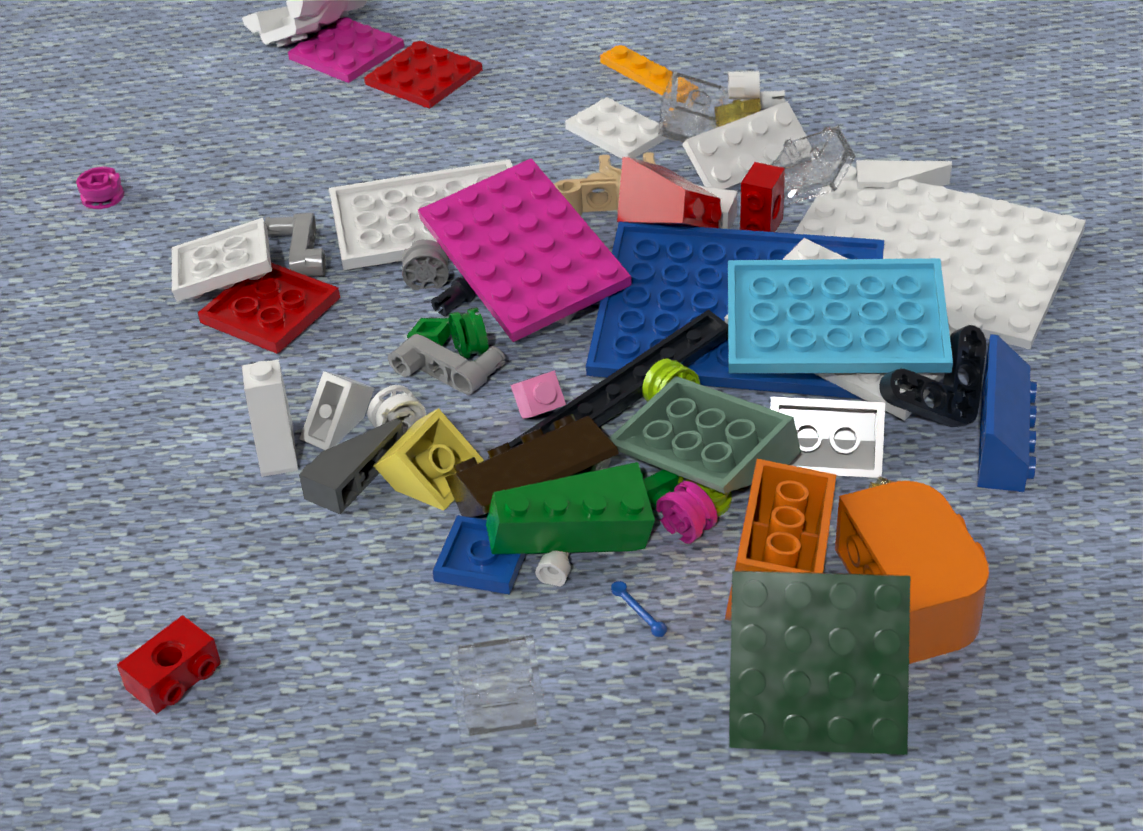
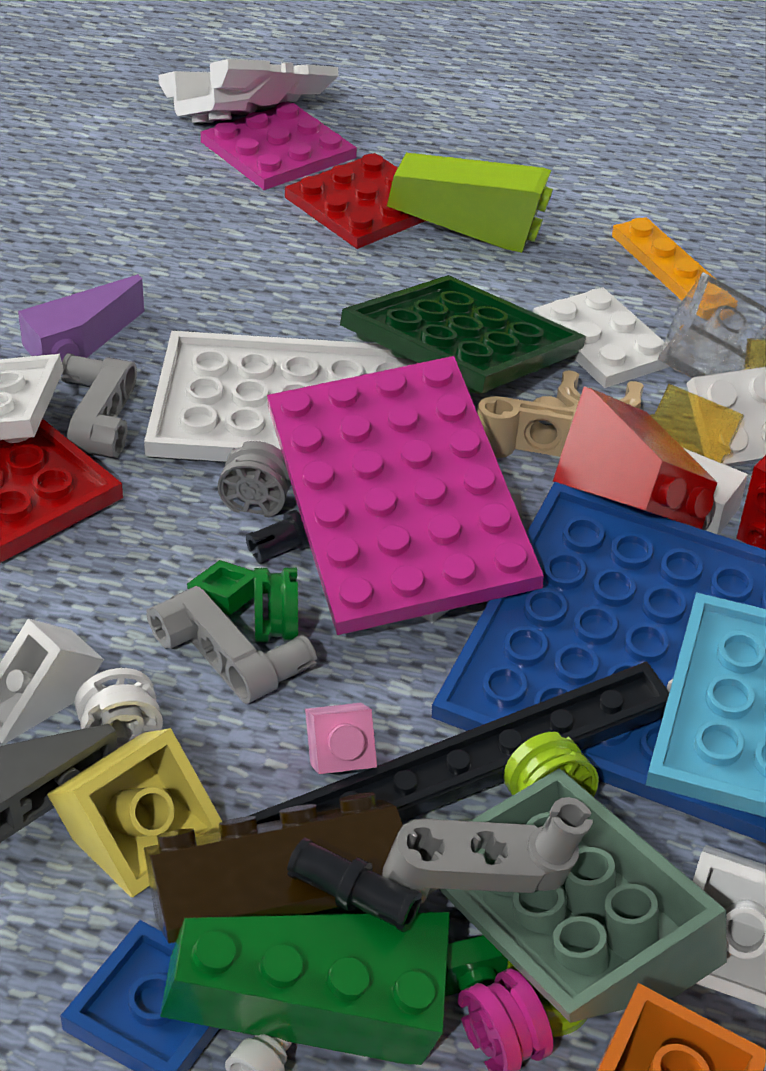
camera: 10 degrees right, 0 degrees up
(262, 195) = (81, 320): none -> medium lavender slope
(501, 55) = (473, 197): none -> lime slope
(515, 138) = (450, 318): none -> dark green plate
(581, 456) = (354, 884): none -> black pin
(651, 422) = (527, 858): none -> light grey beam
(697, 166) = (698, 423): none -> clear yellow piece

